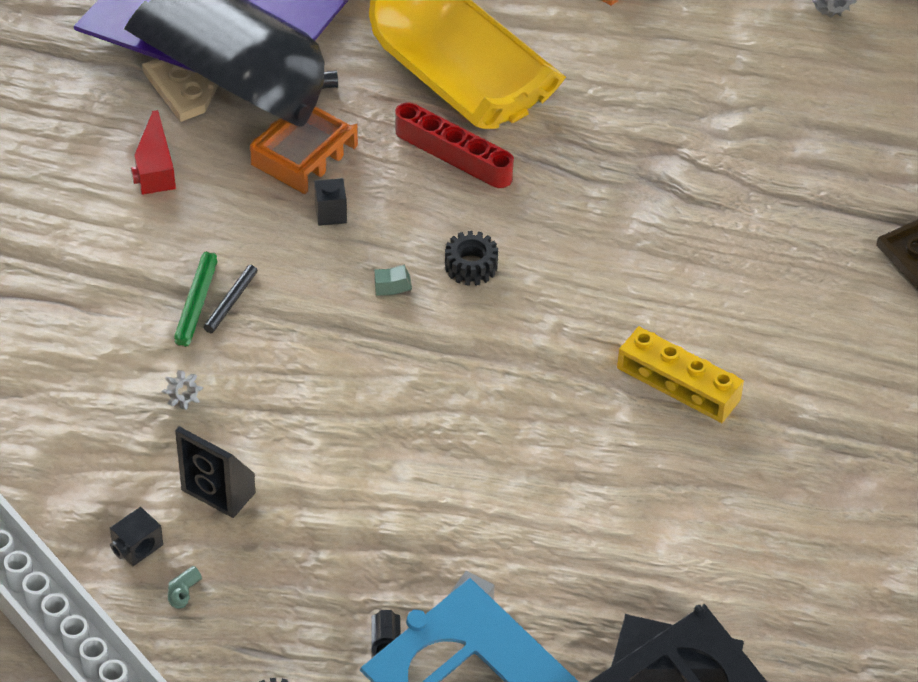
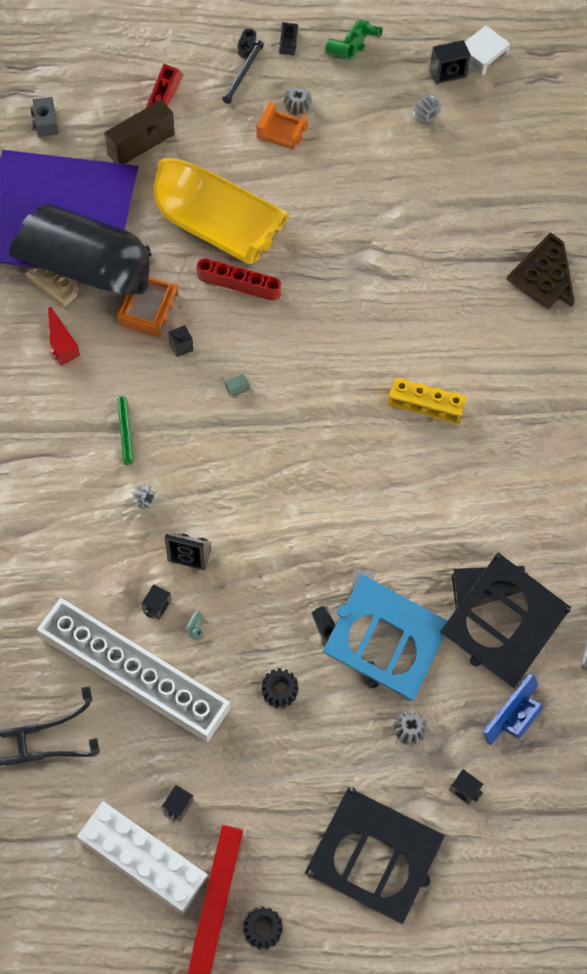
camera: 20 degrees left, 15 degrees up
(230, 299) = (145, 424): black bar -> none
(471, 270) = (278, 346): black tyre -> none

